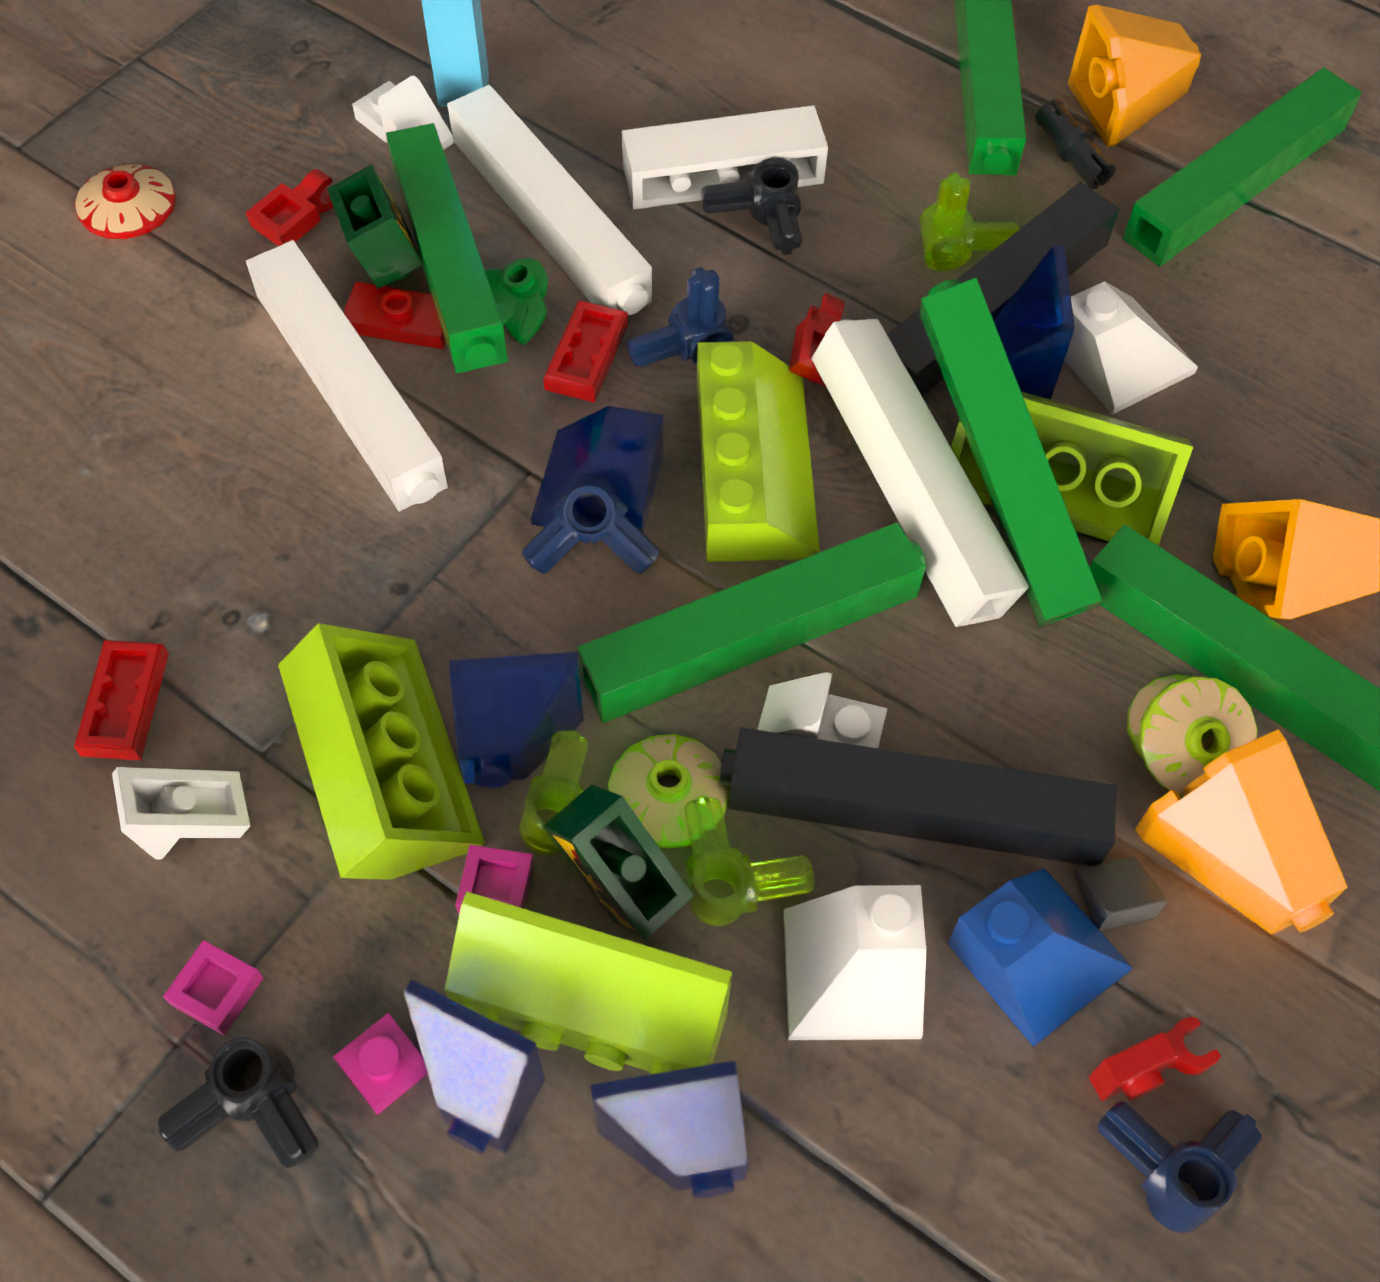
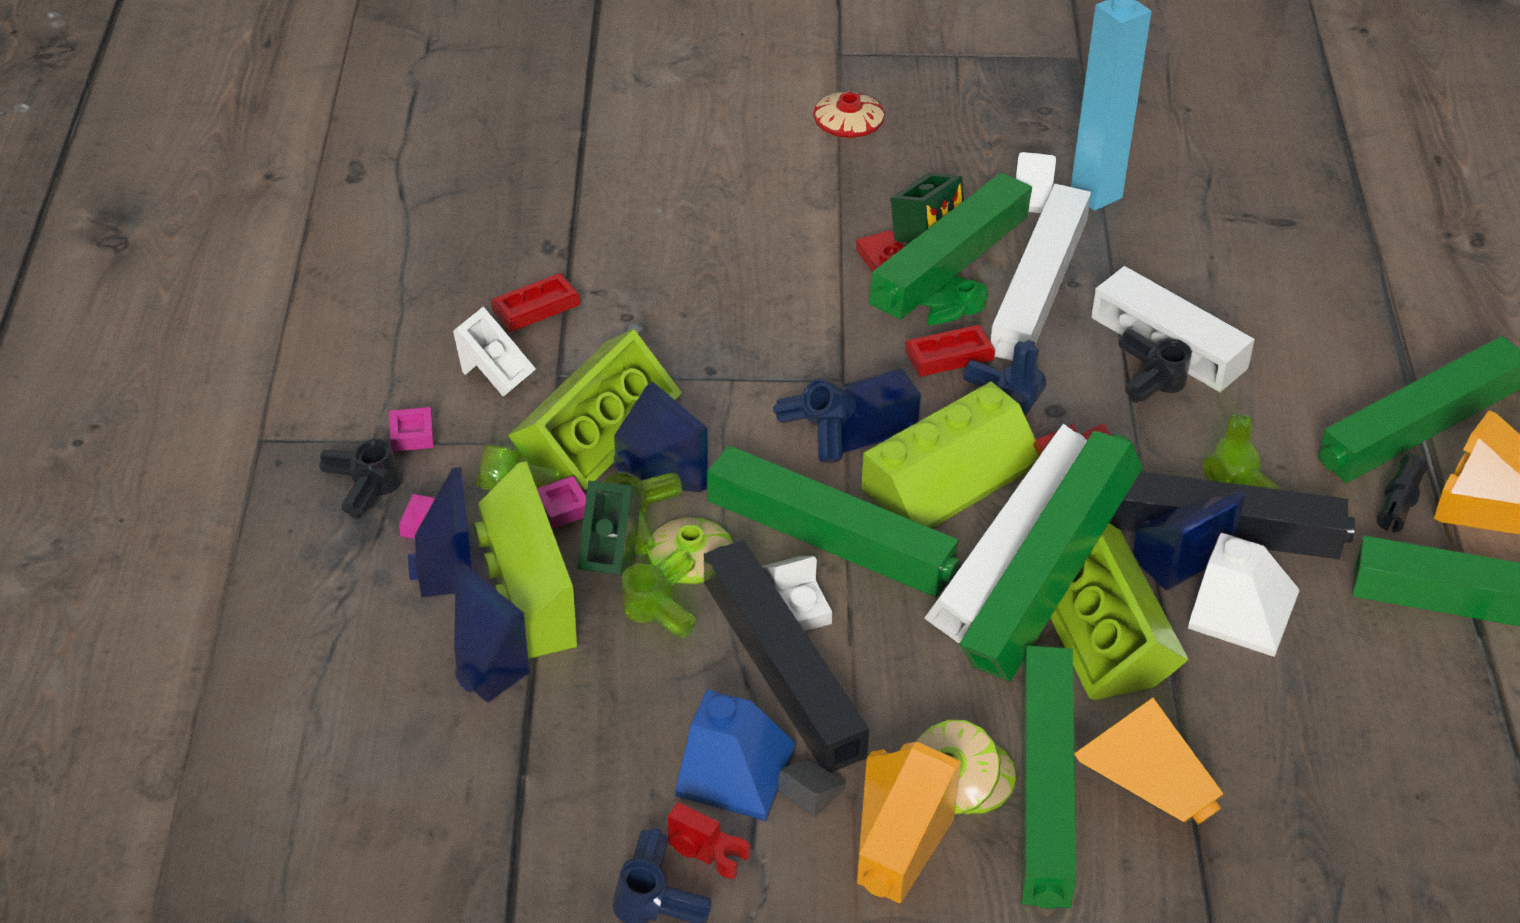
camera: 55 degrees right, 15 degrees down
(291, 213) = (904, 171): red plate -> none
(348, 376) = (819, 263): white brick -> none
(397, 917) = (499, 461): none -> clear neon green axle
(856, 964) = (653, 683): white slope -> none

